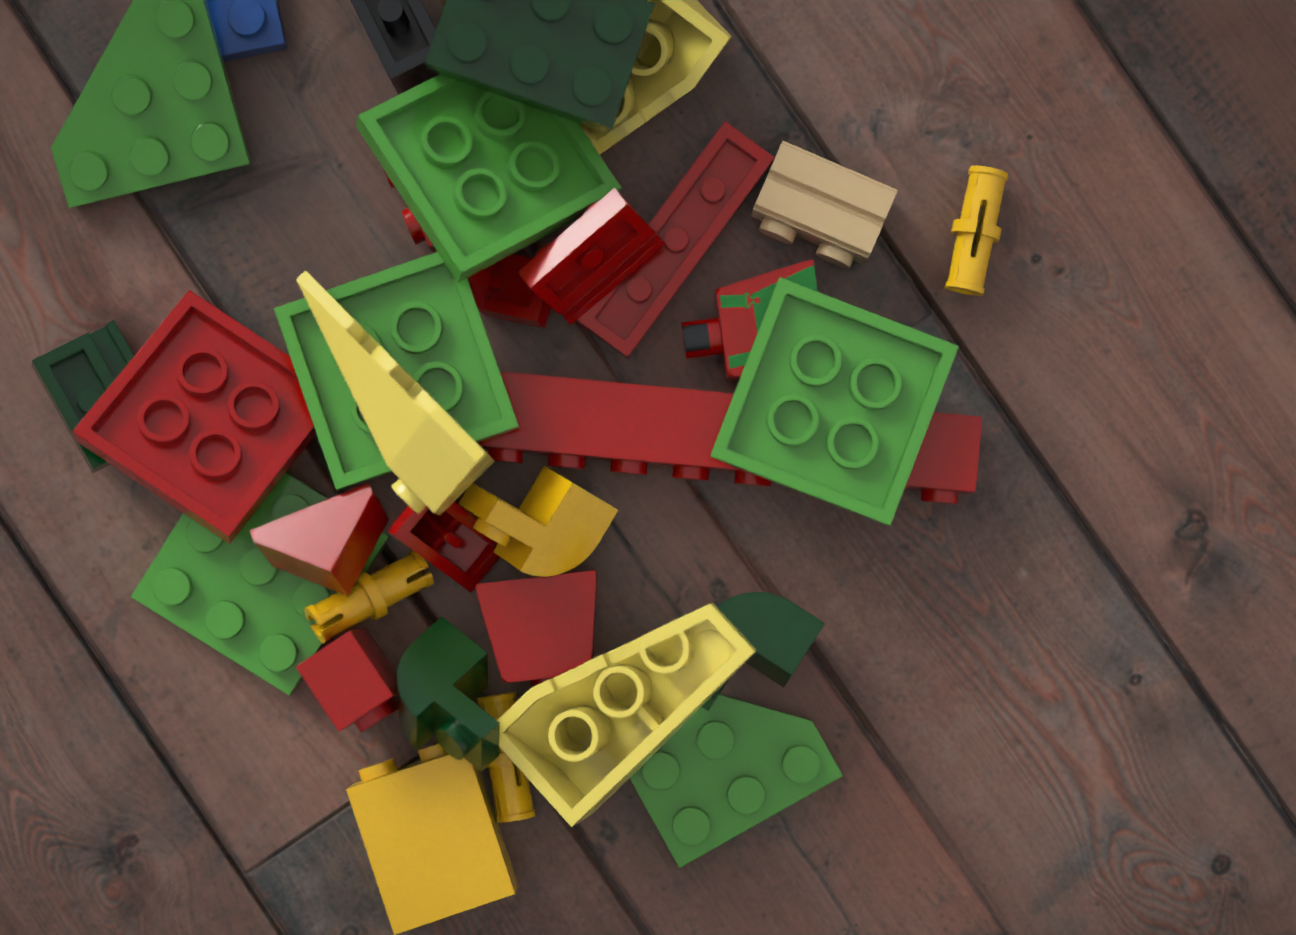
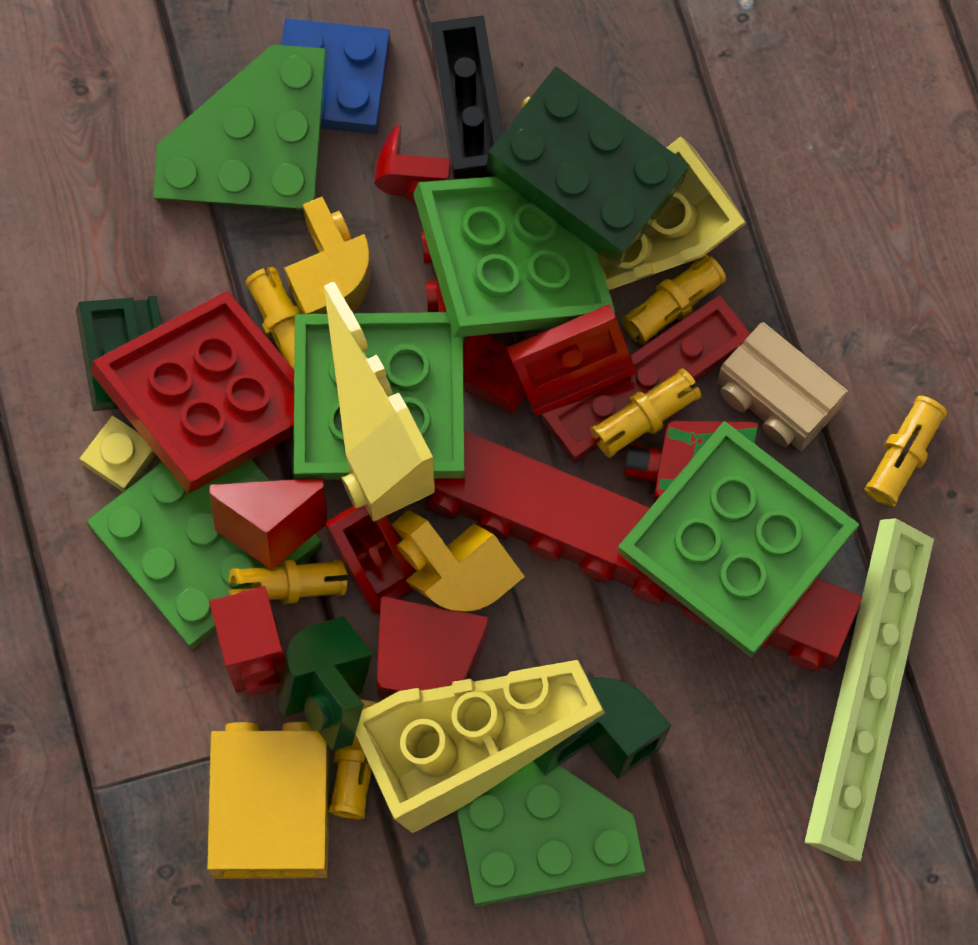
camera: 20 degrees right, 15 degrees down
(135, 512) = (118, 454): none -> light yellow plate
(249, 292) = (275, 309): none -> yellow pin
(303, 234) = (338, 261): none -> yellow brick
(340, 92) = (402, 173): none -> red plate
(675, 141) = (673, 299): none -> yellow pin
(689, 285) = (645, 412): none -> yellow pin
(1016, 507) = (869, 691): none -> yellowish green plate

